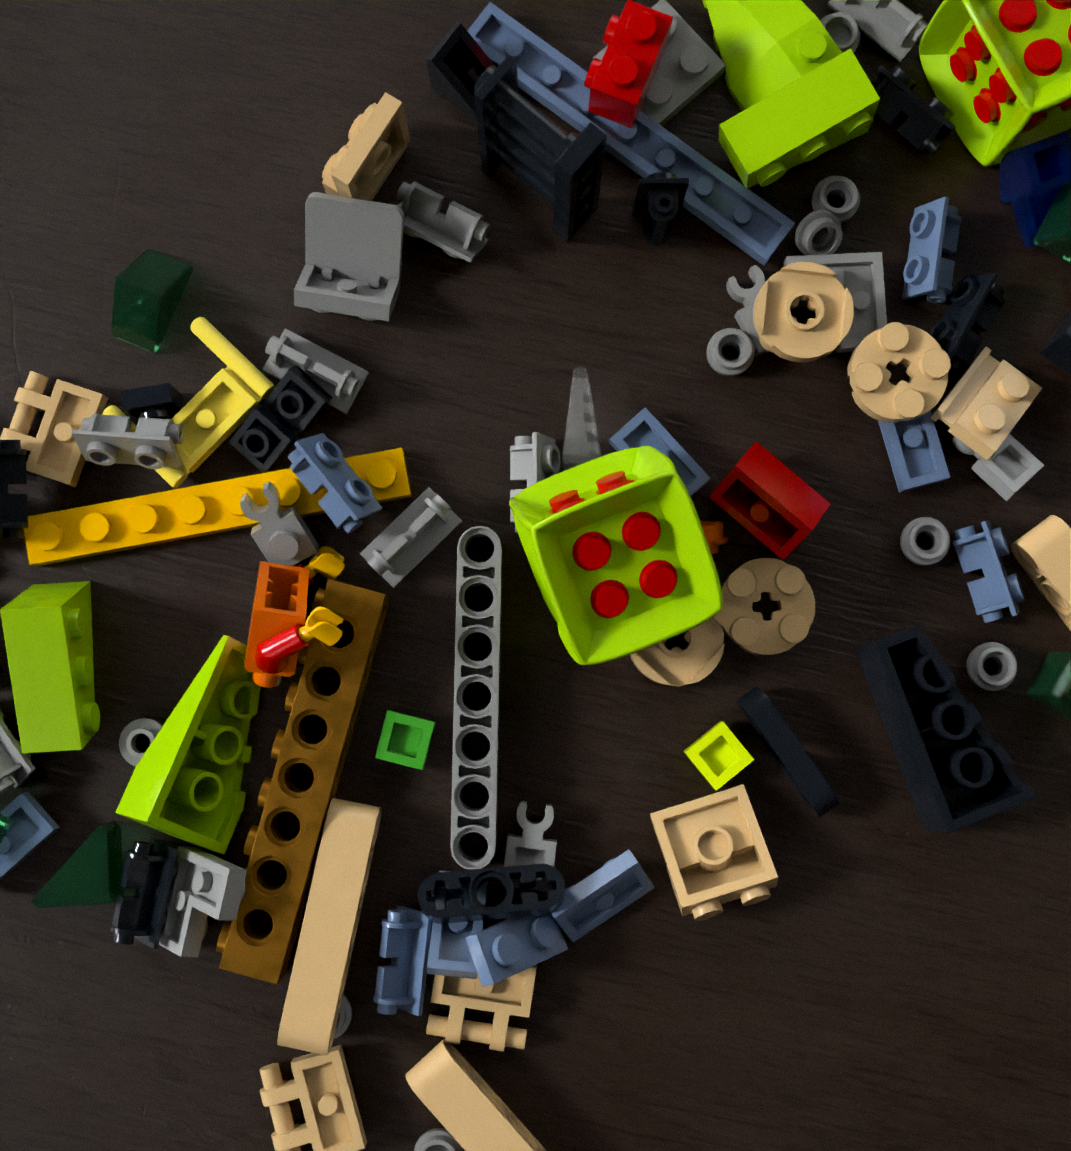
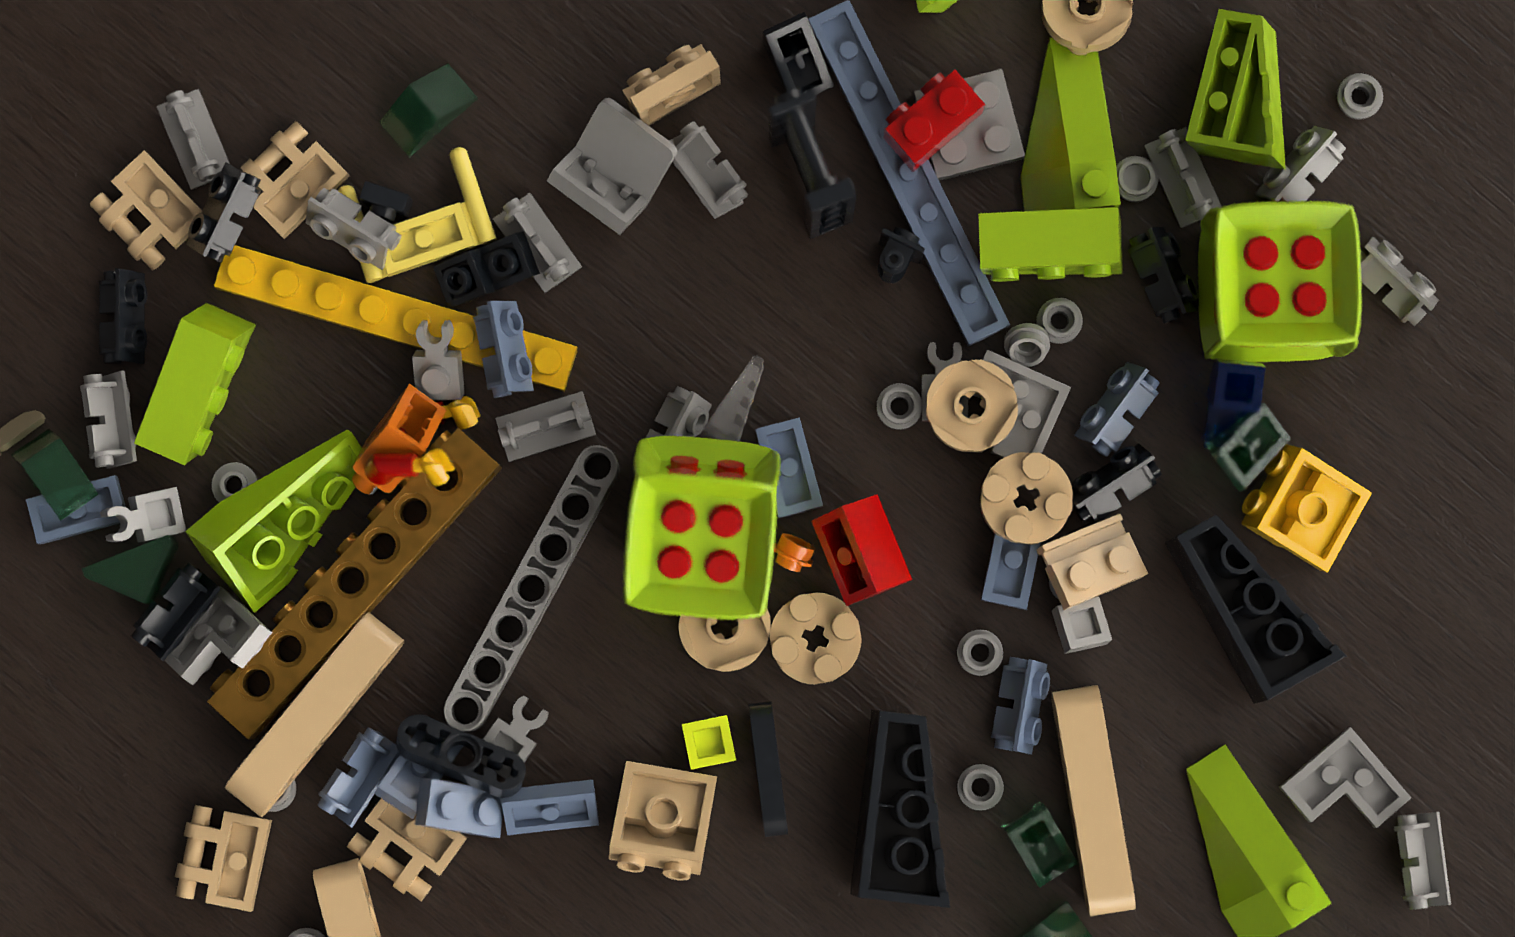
camera: 30 degrees right, 0 degrees up
(74, 814) = (150, 516): none -> light grey plate
(405, 739) = (453, 594): bright green plate -> none

